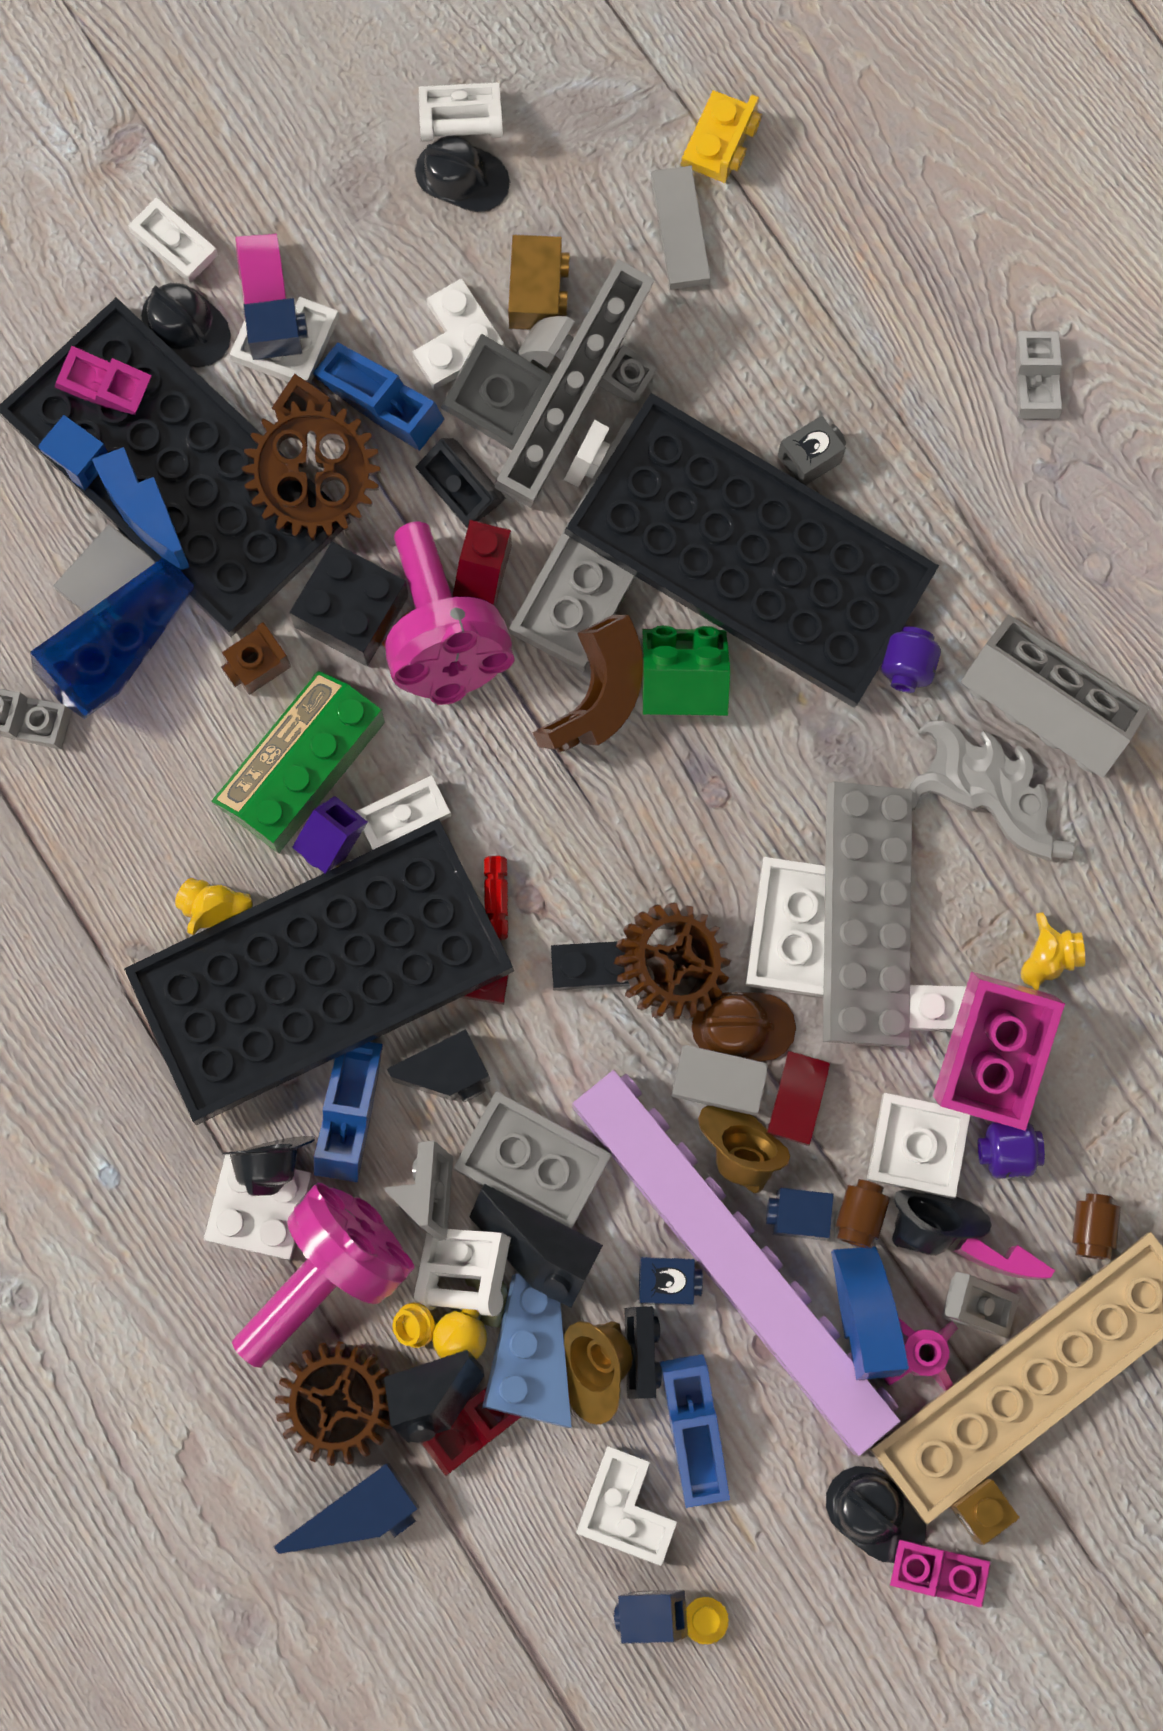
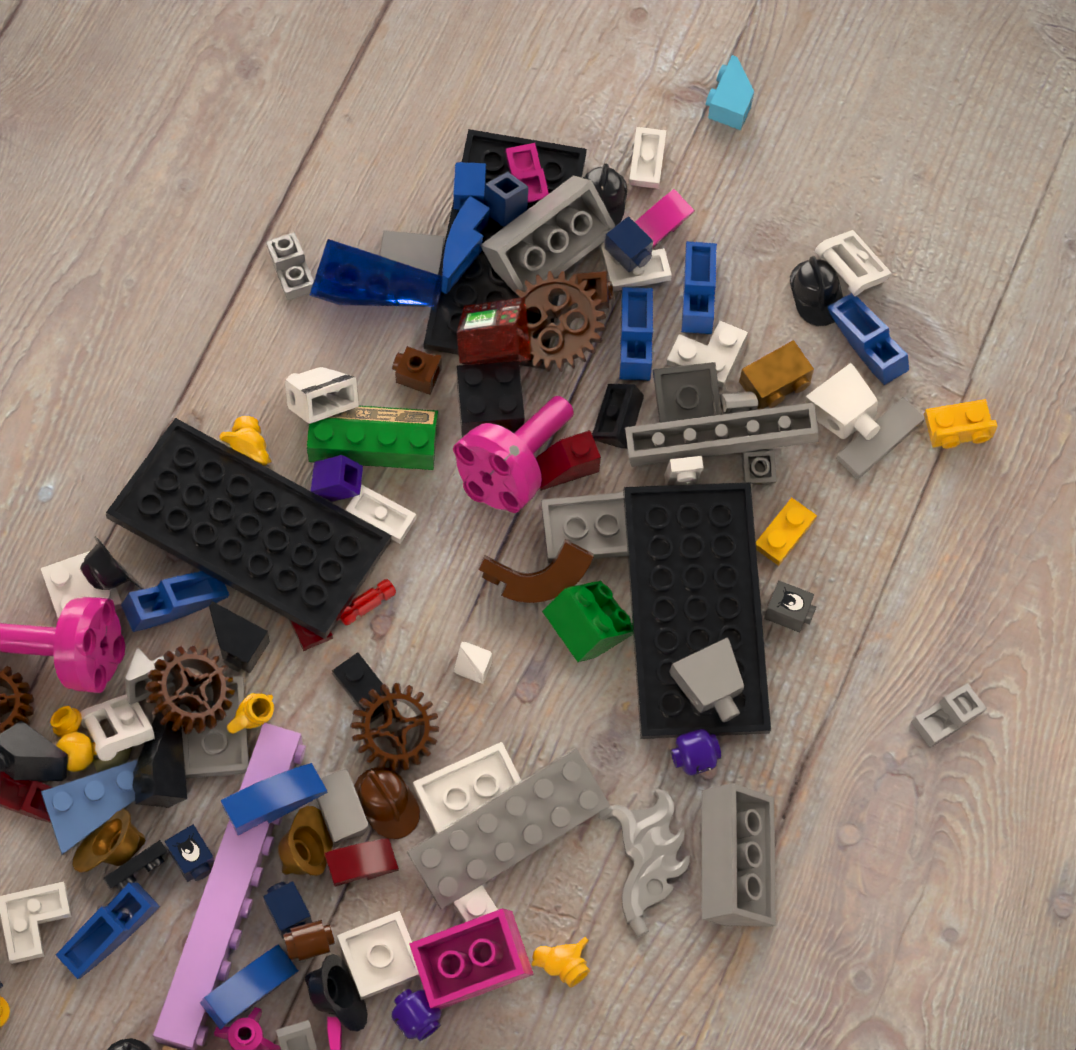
camera: 55 degrees right, 10 degrees down
(123, 421) = (506, 198): none -> dark blue brick
(166, 99) = (733, 96): none -> medium azure slope
(200, 406) = (550, 234): none -> light grey slope
(214, 786) = (320, 393): none -> white torso
(279, 544) = (494, 332): none -> clear red slope
(372, 292) = (699, 288): none -> blue slope
(518, 1157) = (195, 701): none -> reddish brown gear
(550, 1105) = (252, 712): none -> yellow animal
(558, 157) = (869, 338): none -> blue slope
(622, 230) = (846, 404): none -> white torso
(649, 827) = (473, 662): none -> white slope
(676, 1148) = (273, 797): none -> blue slope
(719, 396) = (785, 531): none -> yellow plate
(850, 586) = (711, 679): none -> light grey torso

